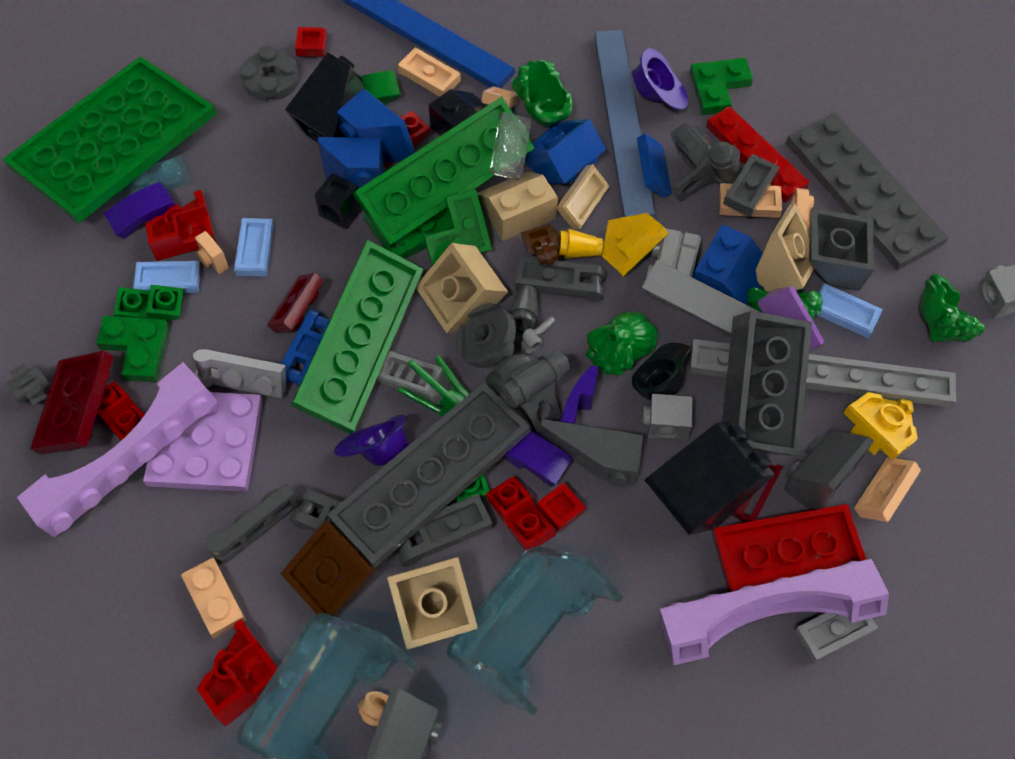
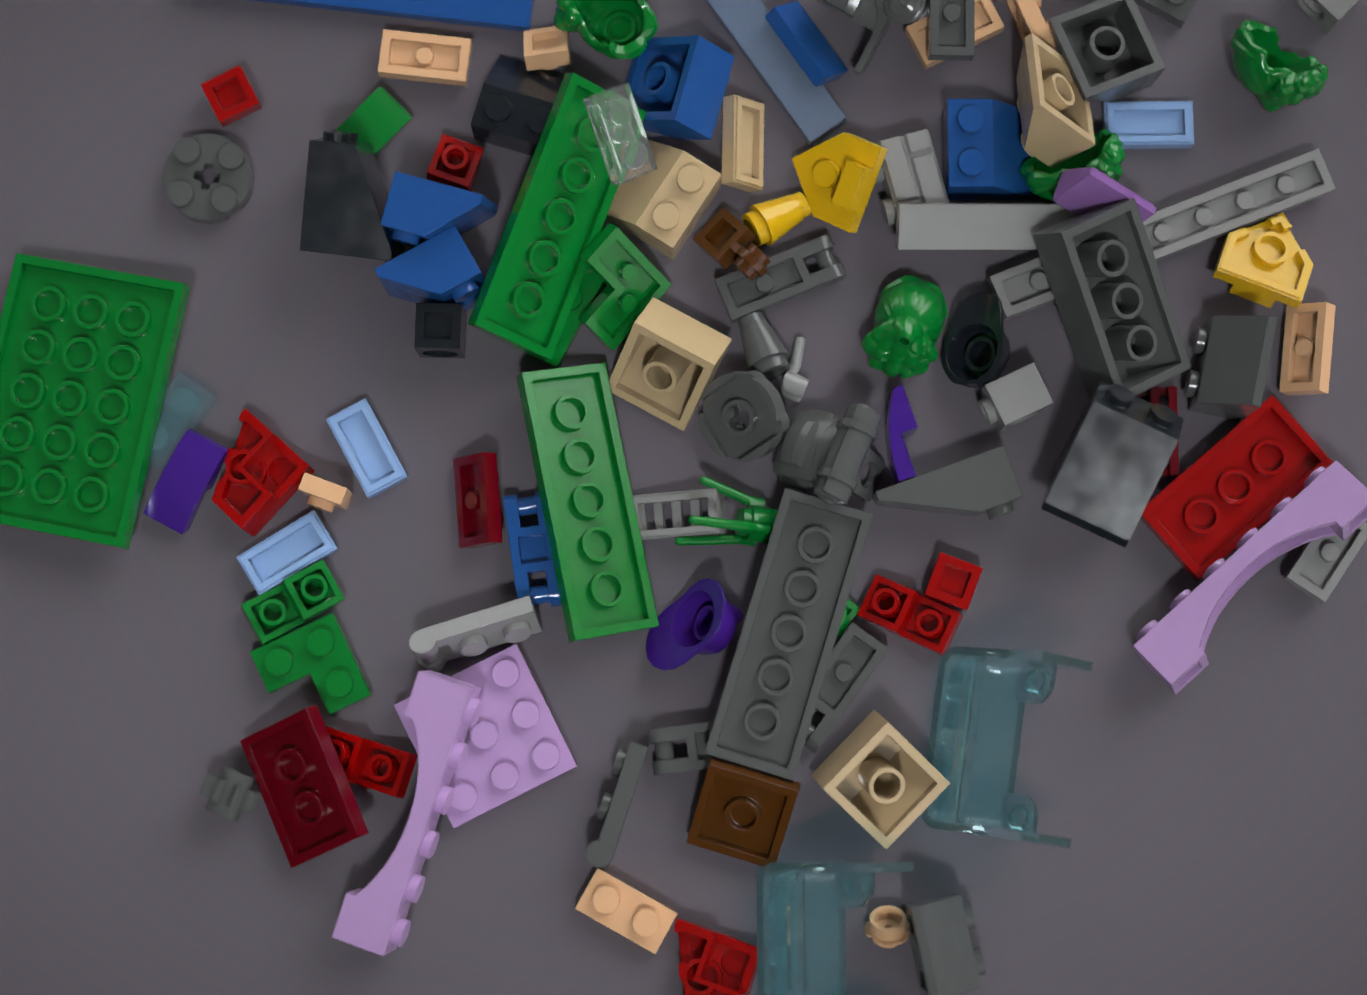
camera: 30 degrees left, 20 degrees up
(539, 458) = (898, 534): dark purple slope -> none

